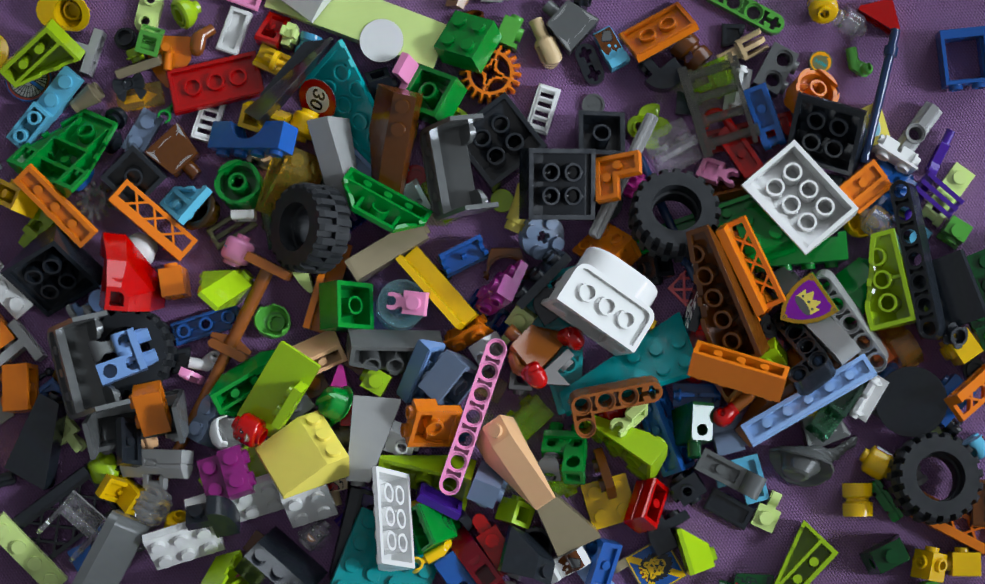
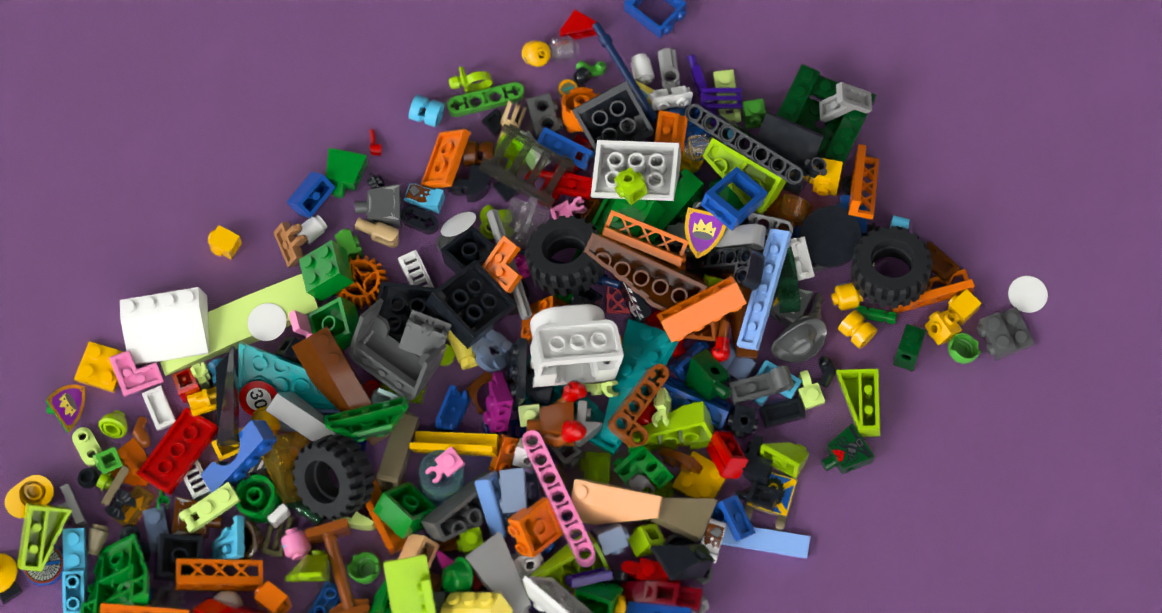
camera: 45 degrees left, 15 degrees down
(193, 158) = (210, 507): none -> yellowish green plate
(494, 175) = (423, 333): none -> dark grey hinge
(601, 353) = (602, 387): none -> yellowish green plate
(616, 99) = (458, 224): none -> white sticker
(642, 561) = (760, 496): none -> black slope
(780, 210) = (630, 185): none -> lime brick
(800, 508) = (828, 370): none -> black arm
(837, 301) = (723, 210): none -> blue window
(842, 62) = (582, 75): none -> black hinge
(898, 103) = (642, 68): none -> white brick

